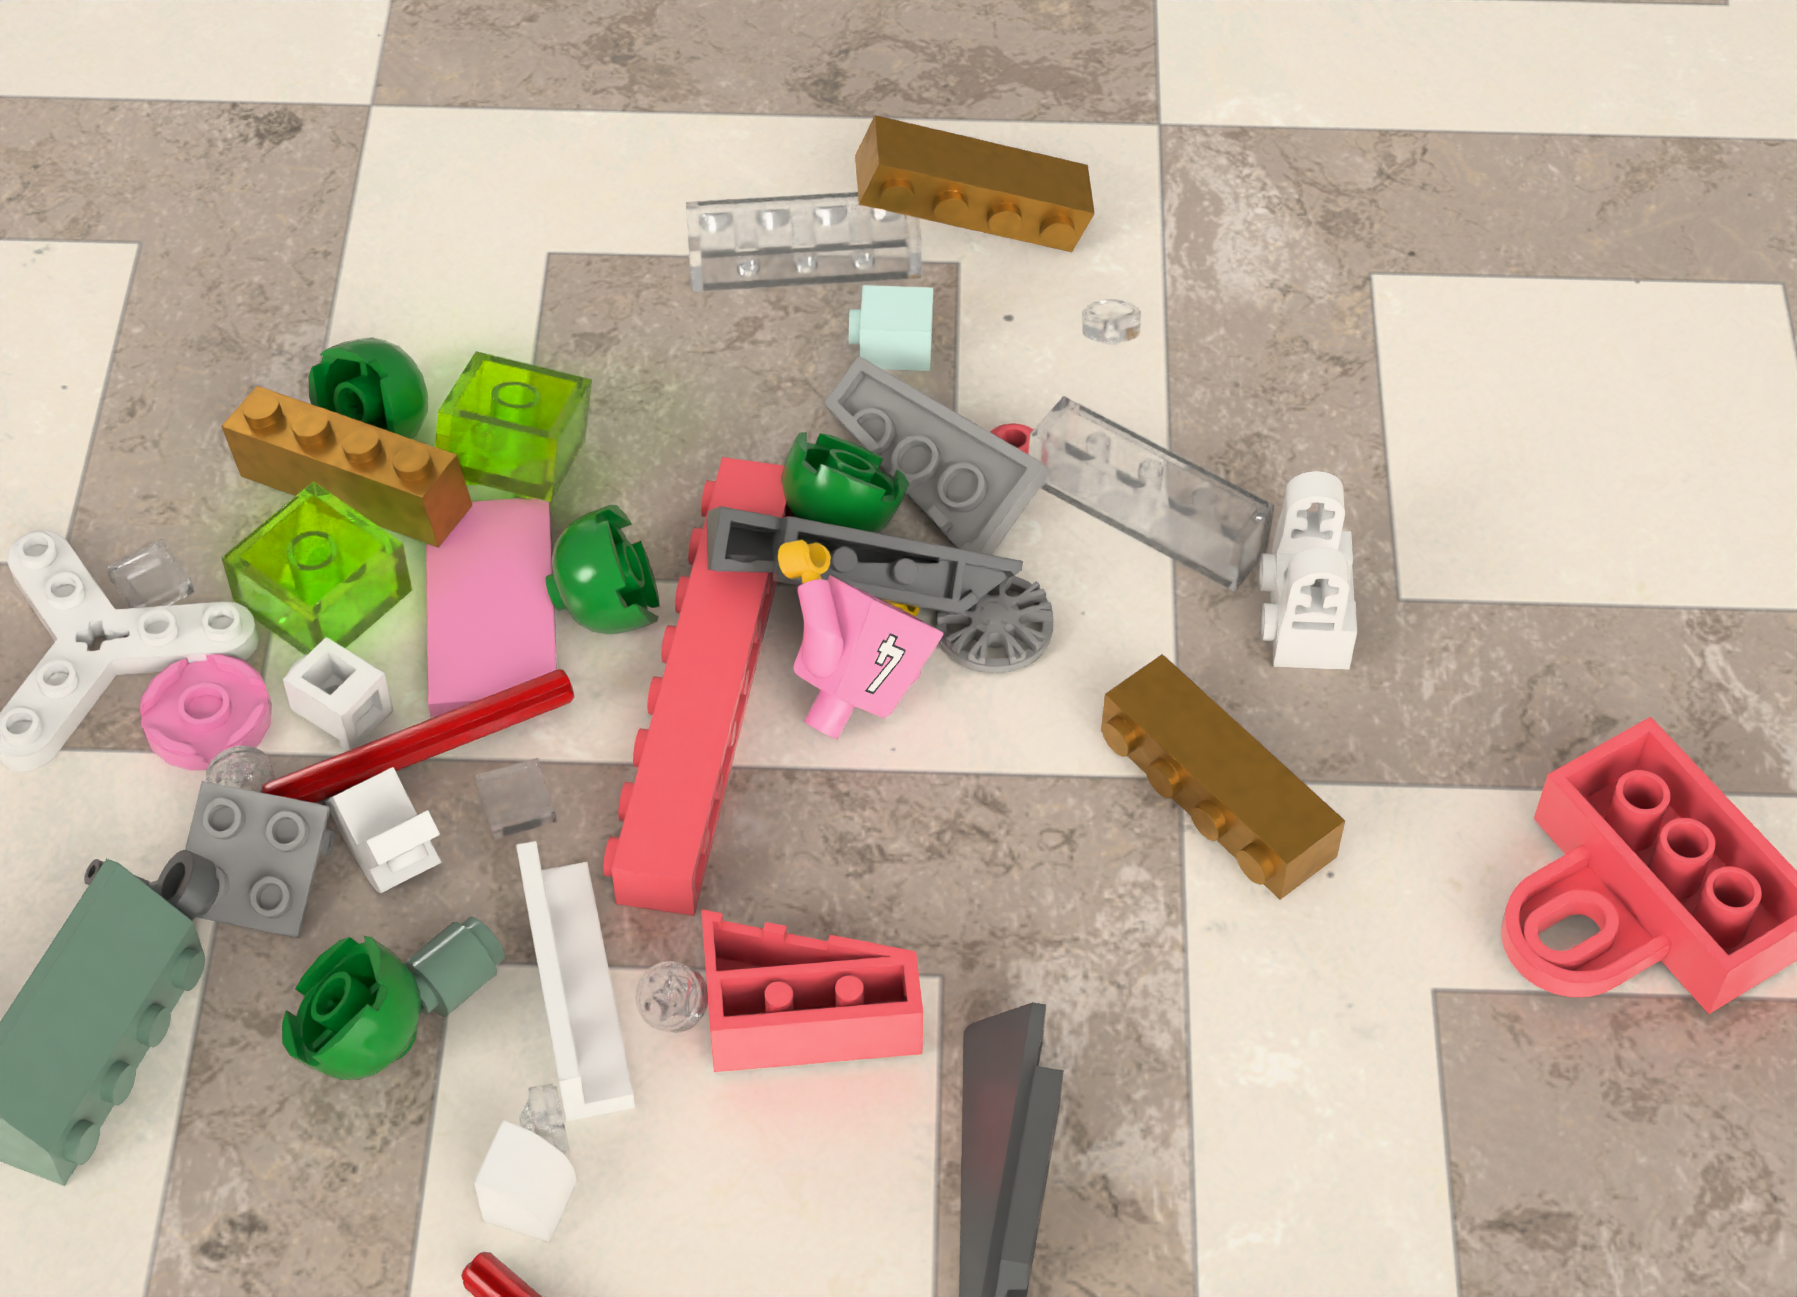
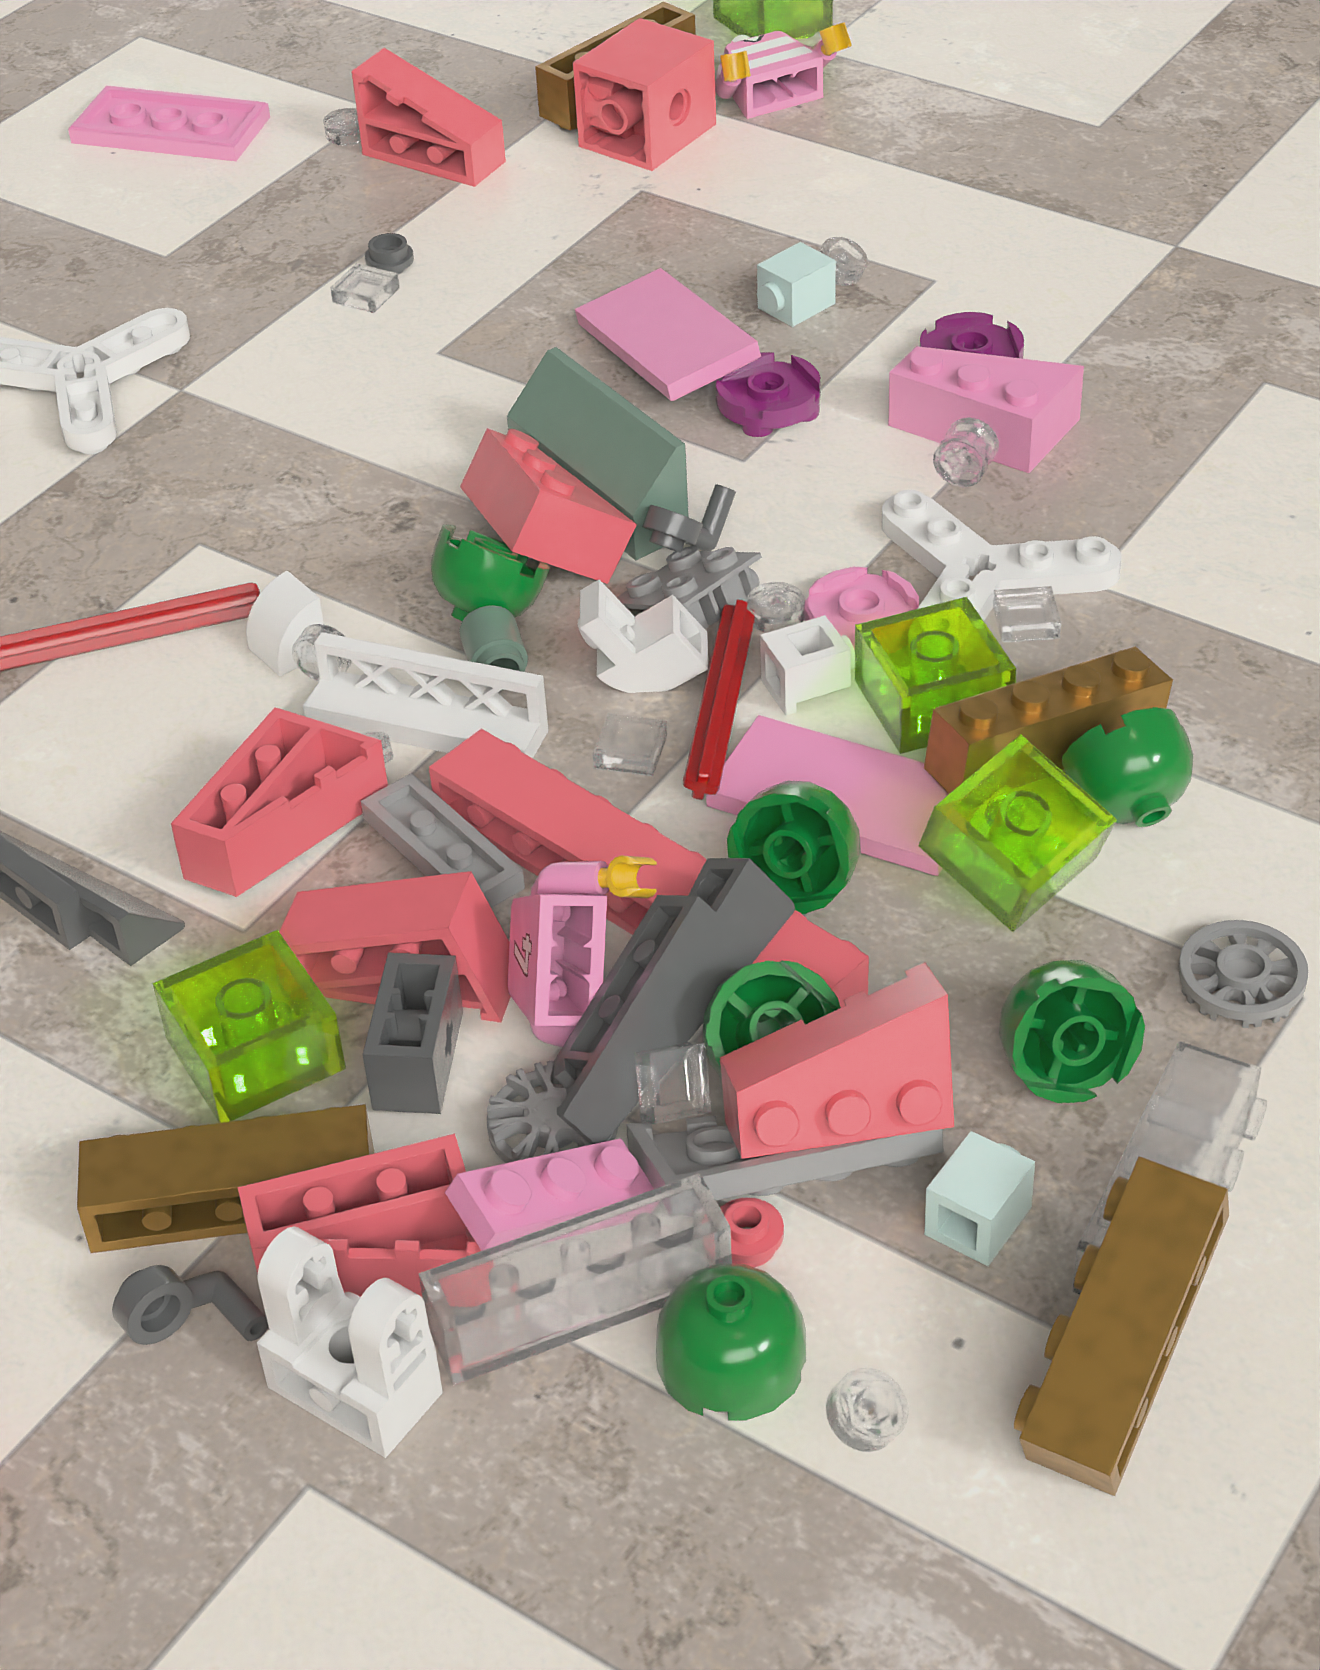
camera: 125 degrees right, 10 degrees down
(206, 1033) = (544, 508): none -> coral wedge
(552, 282) = (1242, 972): none -> light grey wheel
(702, 331) = (1070, 1030): none -> green cylinder
(755, 848) = (440, 838): none -> light grey plate
(874, 396) = (848, 1076): none -> coral wedge
(913, 794) = (350, 929): none -> coral wedge
(925, 531) = (673, 1082): none -> clear tile
(1001, 718) = (413, 1033): none -> dark grey brick
(1078, 838) = (250, 1026): none -> clear neon green brick
(1097, 532) = (544, 1190): none -> bright pink plate
(1126, 392) = (731, 1342): none -> green cylinder
(1195, 618) = (375, 1211): none -> coral wedge
(1356, 747) = (158, 1302): none -> dark grey plate

